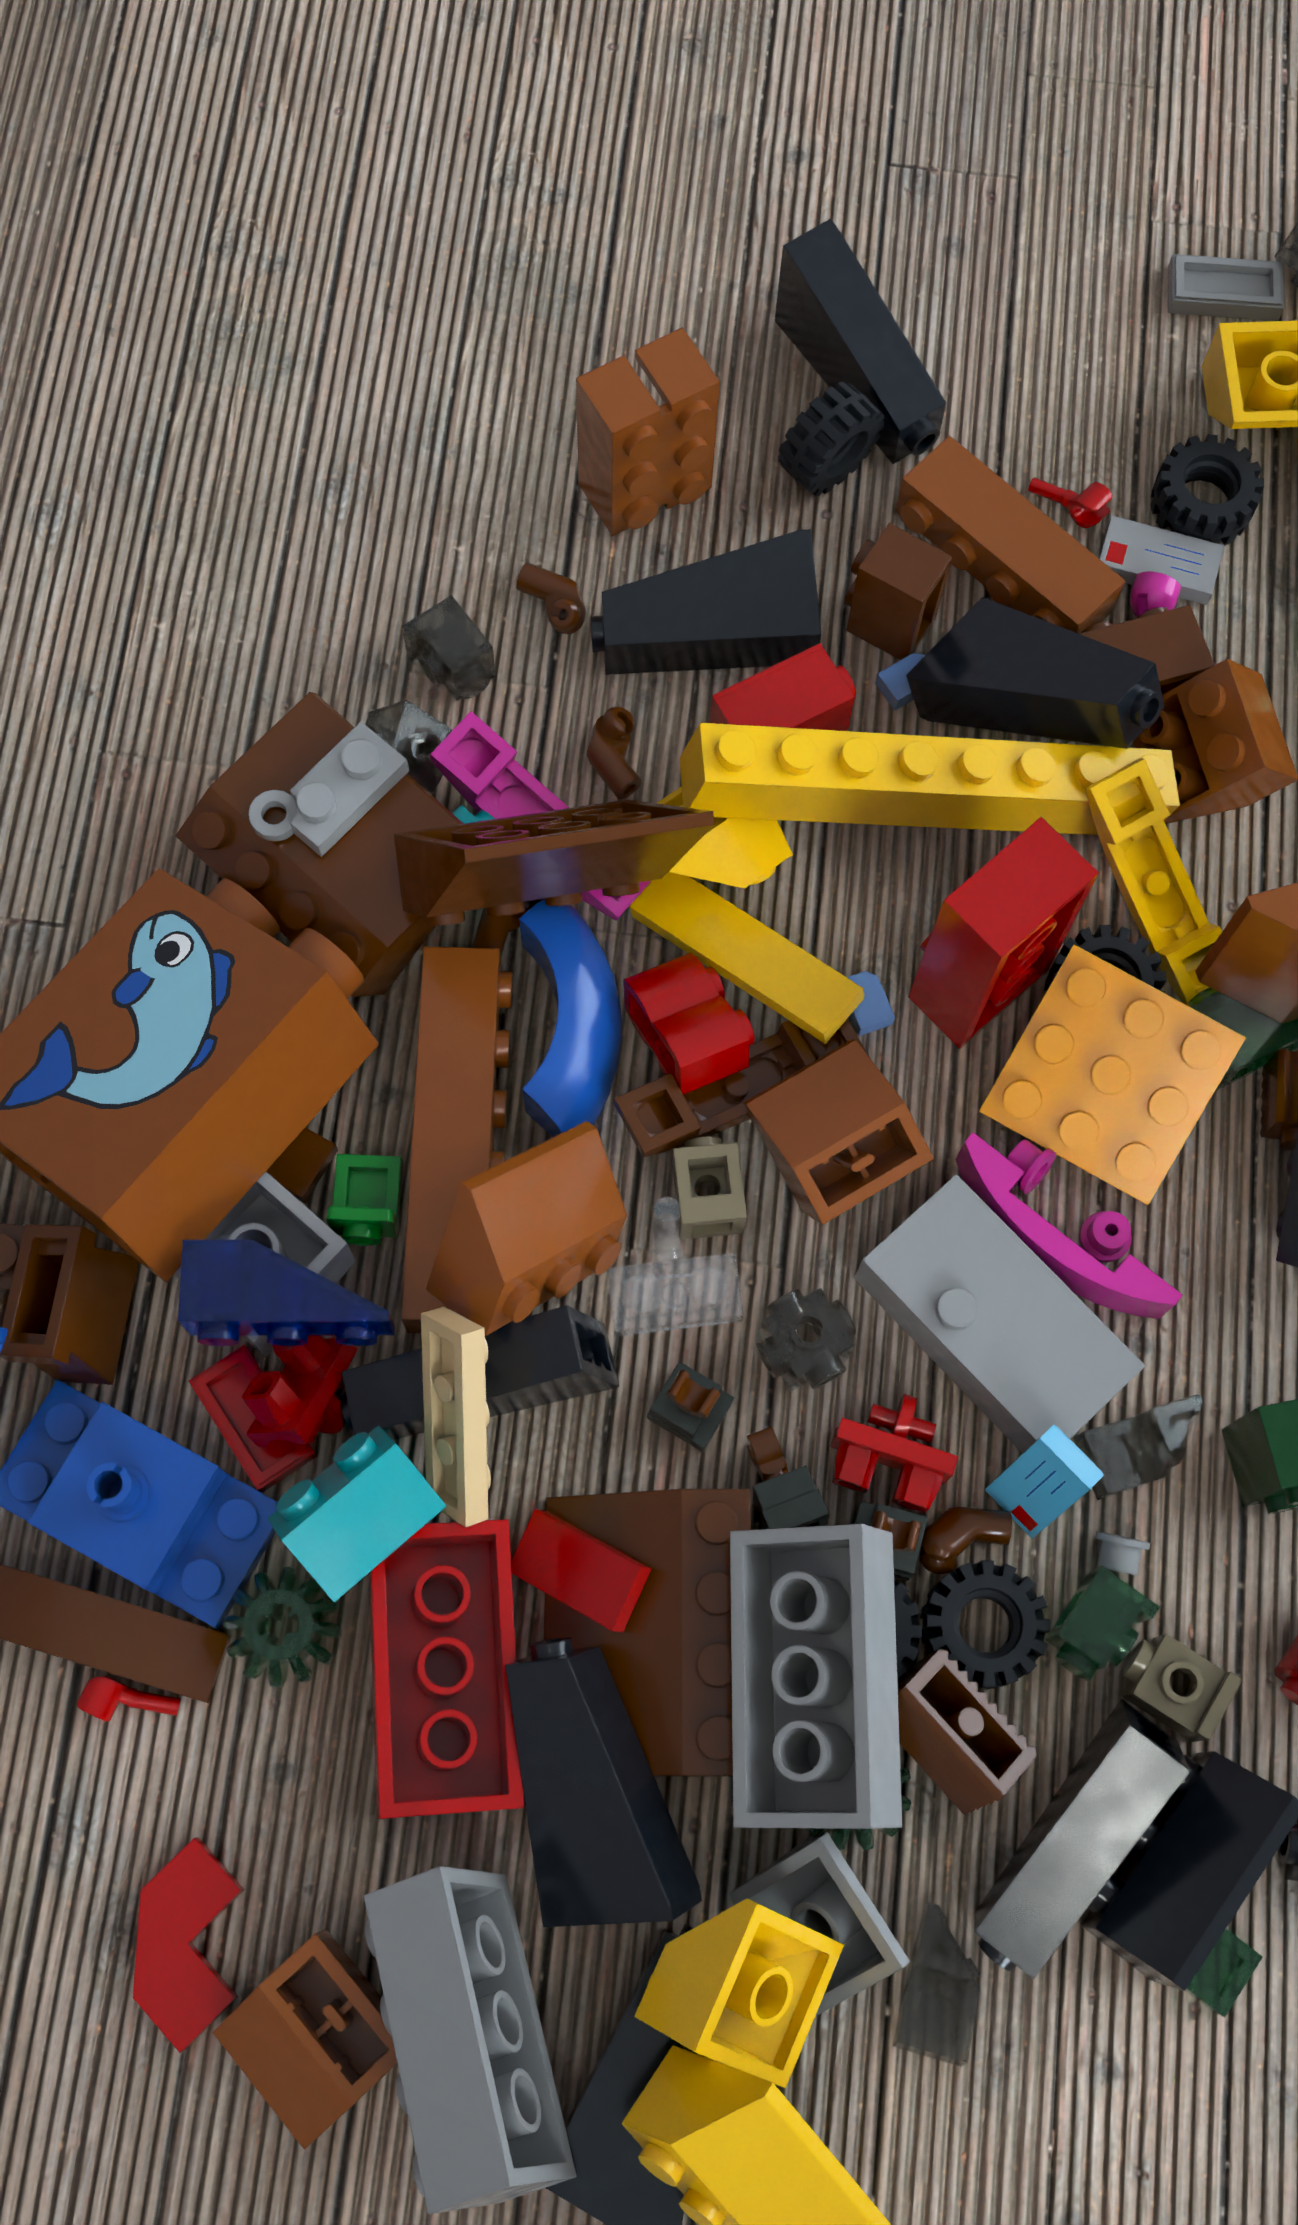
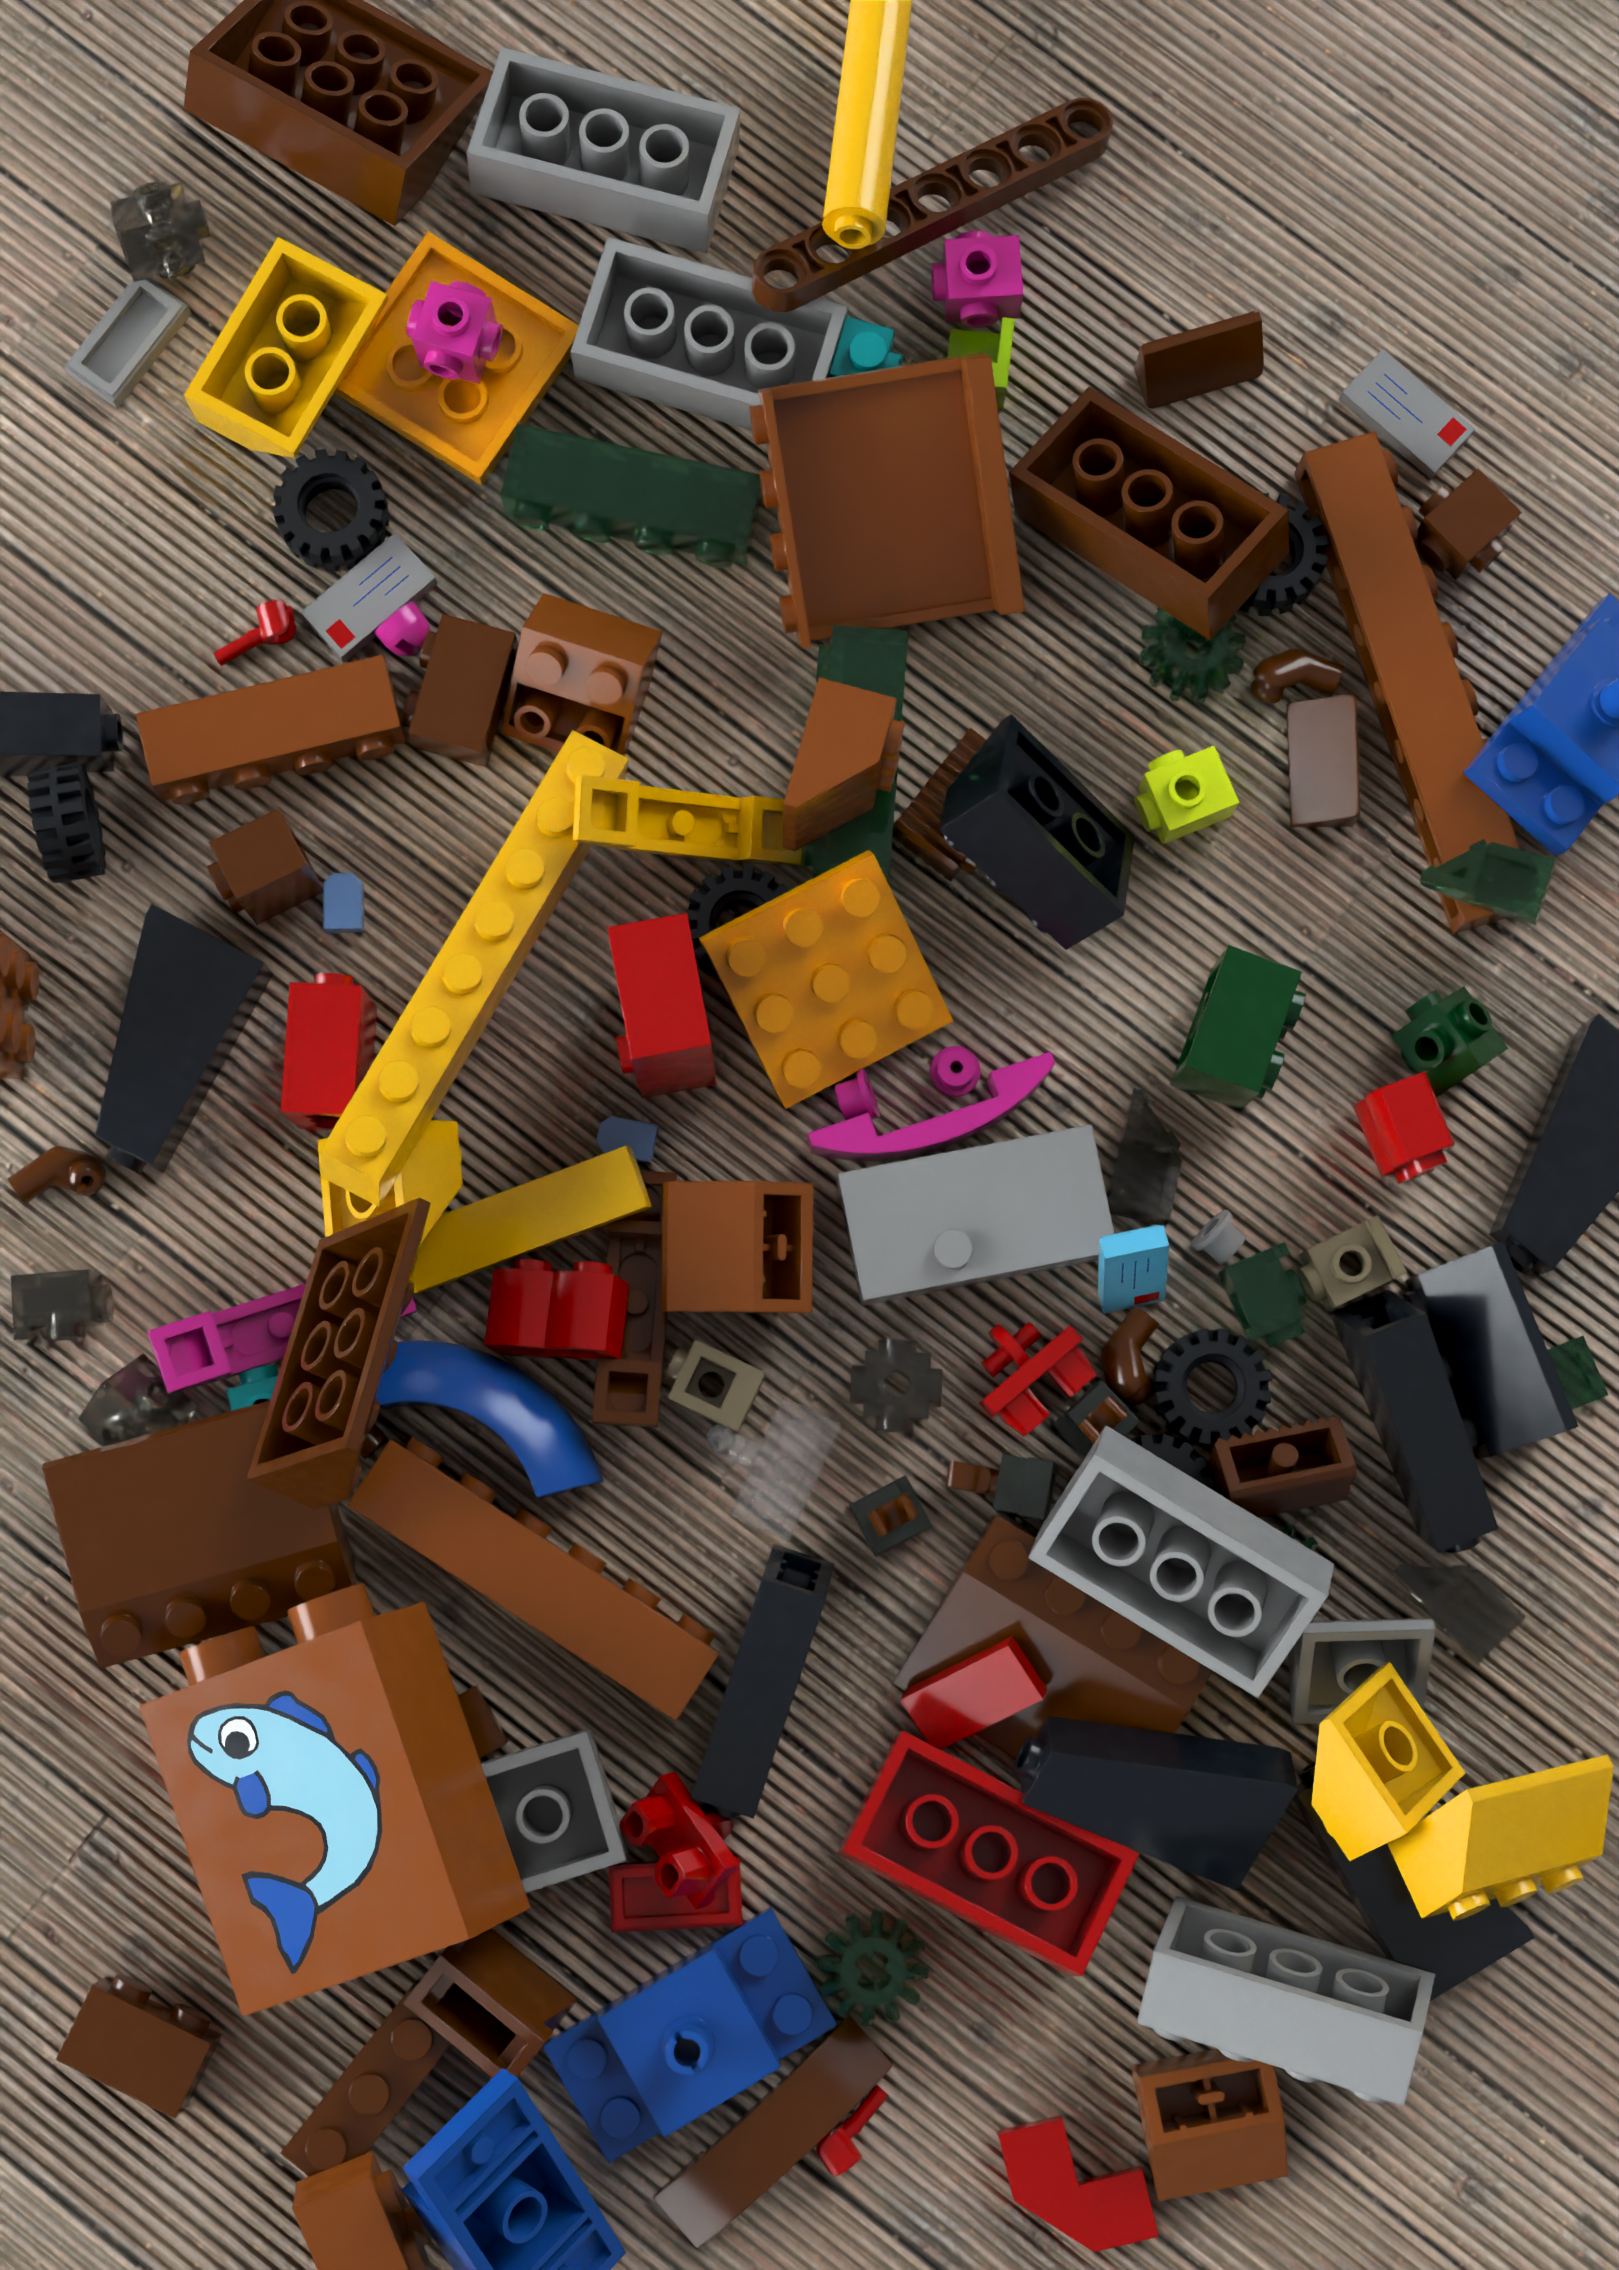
camera: 60 degrees left, 10 degrees up
(254, 1291) = (586, 1837): clear blue slope -> none
(333, 792) = (161, 1506): light grey hinge -> none
(354, 1511) = (831, 1858): teal slope -> none
(366, 1198) = (542, 1687): green bracket -> none
(456, 1413) = (797, 1727): tan plate -> none
(529, 1230) = (678, 1569): dark orange slope -> none
(608, 751) = (244, 1217): reddish brown arm -> none
(1035, 680) = (429, 805): black slope -> none

